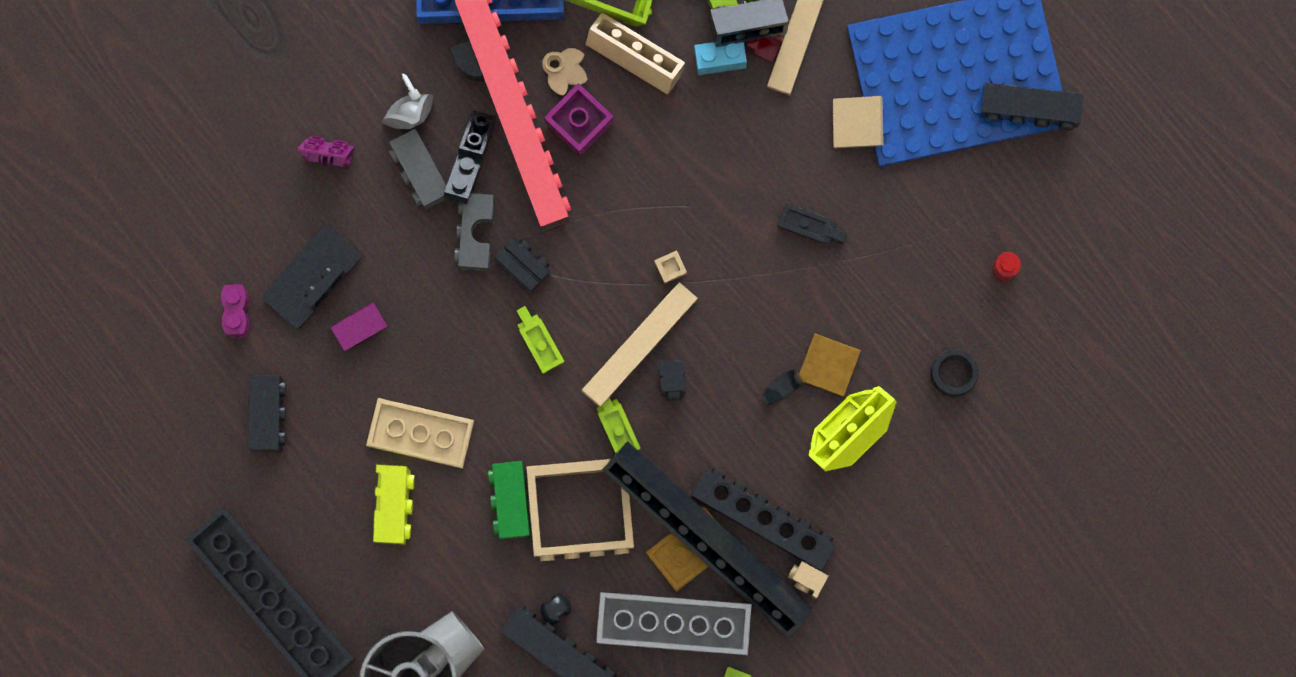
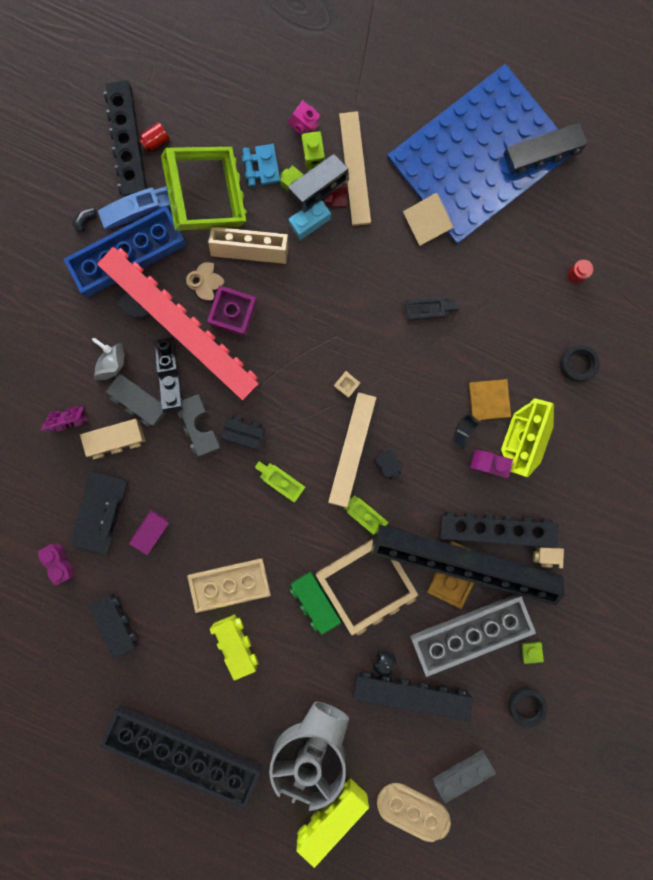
camera: 30 degrees left, 5 degrees up
(370, 200) = (113, 439): none -> tan brick
(792, 437) = (491, 463): none -> magenta brick

